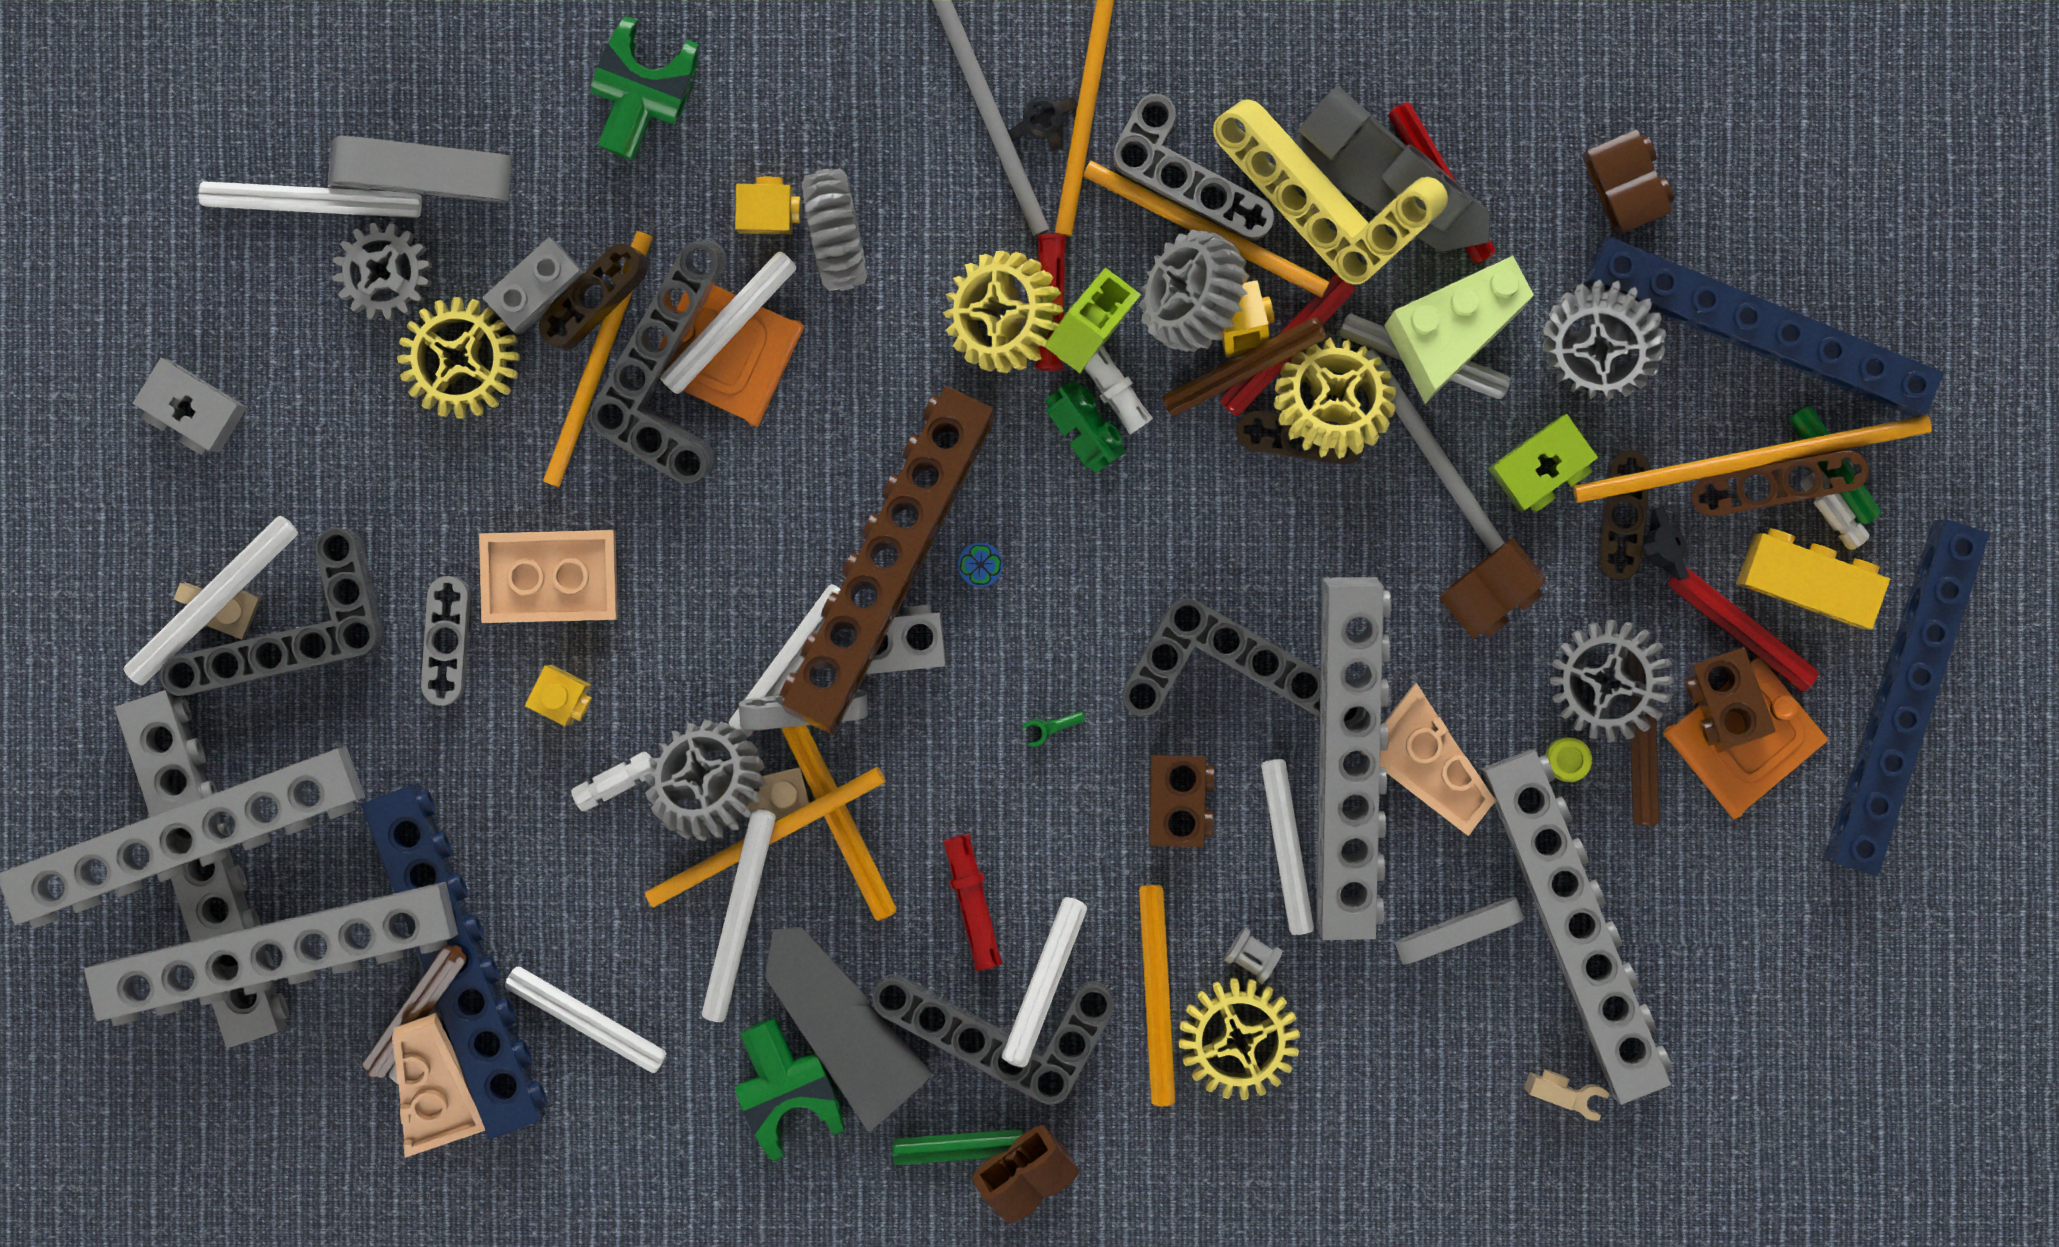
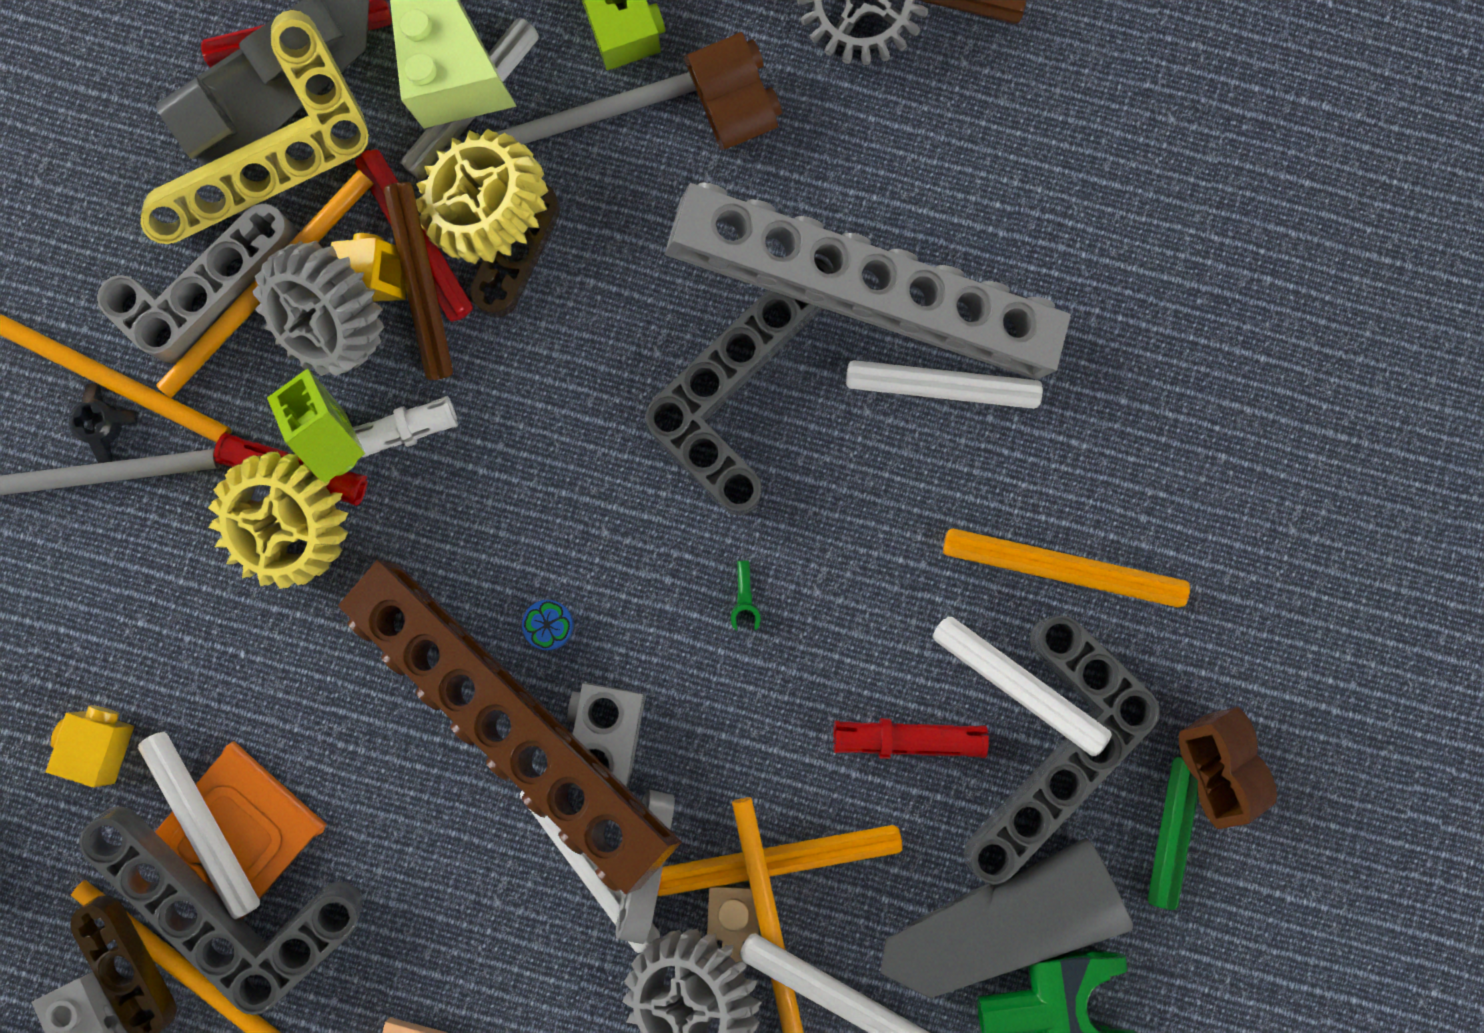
camera: 75 degrees left, 5 degrees down
(834, 229) = (128, 678): light grey gear -> none
(1099, 440) = (414, 474): green hinge -> none
(1167, 800) = (858, 496): reddish brown brick -> none
(1253, 955) = (1041, 460): light grey bush -> none
(1258, 1031) = (1135, 471): light yellow gear -> none
(1432, 765) = (902, 206): light nougat wing -> none
(1459, 930) = (1083, 229): light grey beam -> none
(1555, 1089) = (1279, 176): tan plate -> none
(1569, 759) = (932, 71): neon yellow tile -> none
(1649, 1068) = (1282, 75): light grey brick -> none

